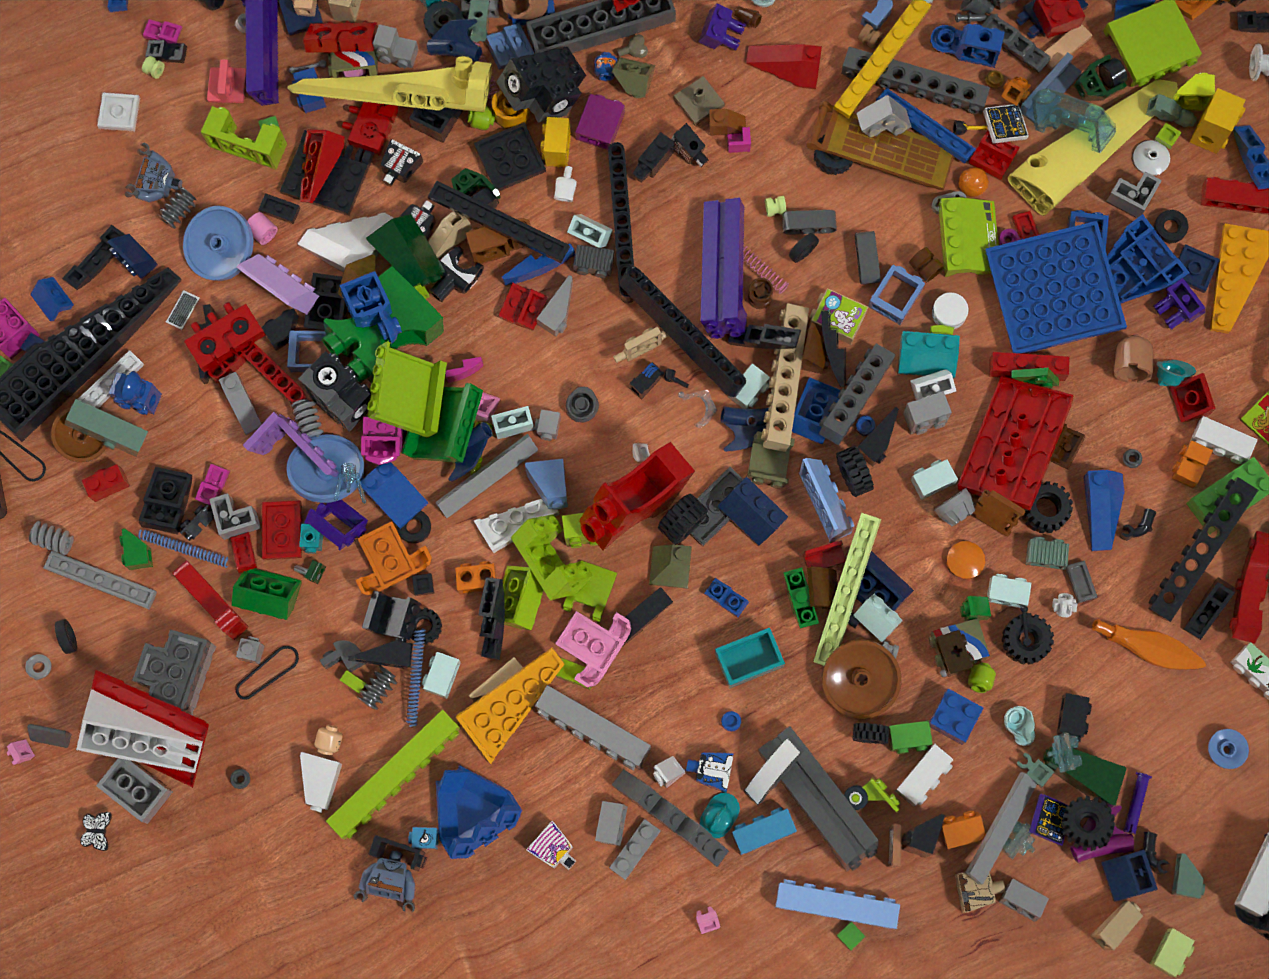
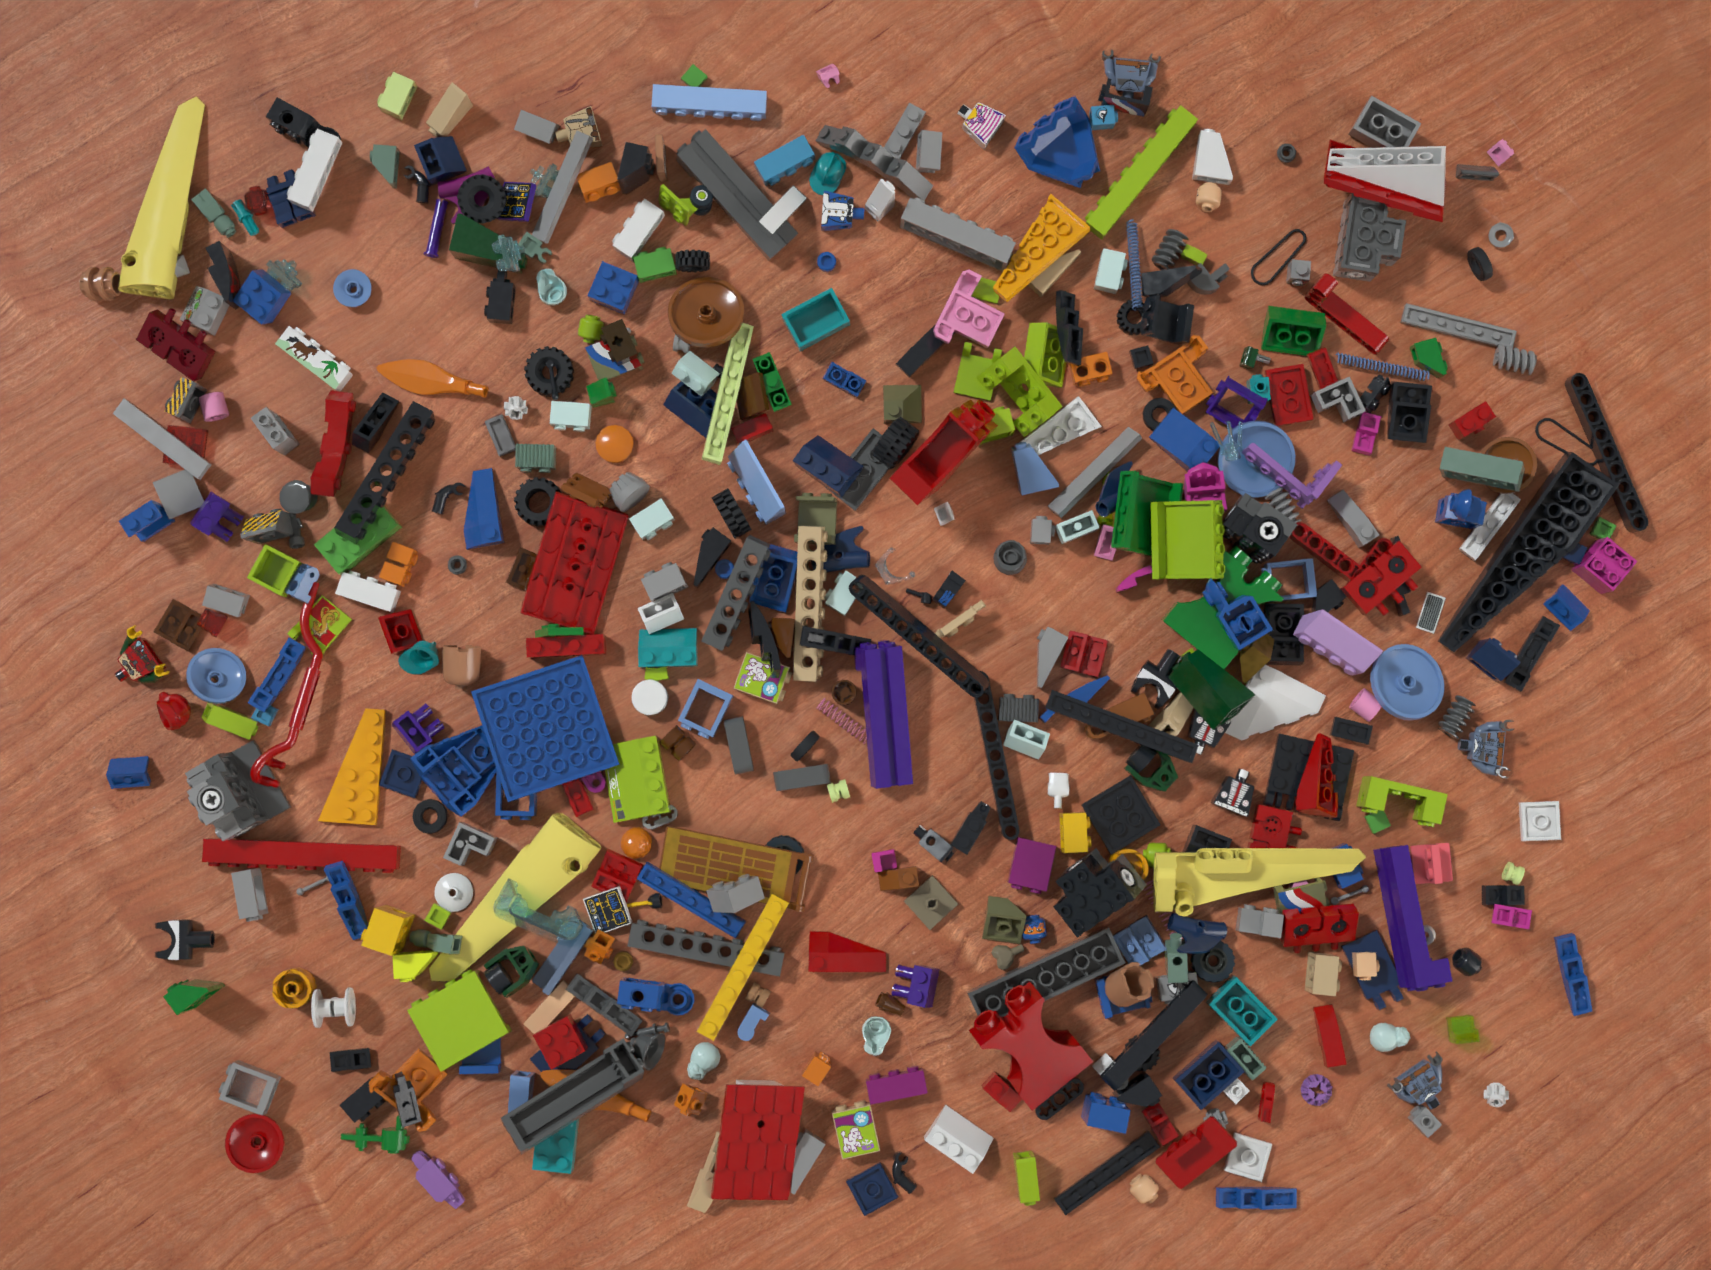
camera: 165 degrees right, 10 degrees up
(96, 830) = (1414, 87): black animal -> none

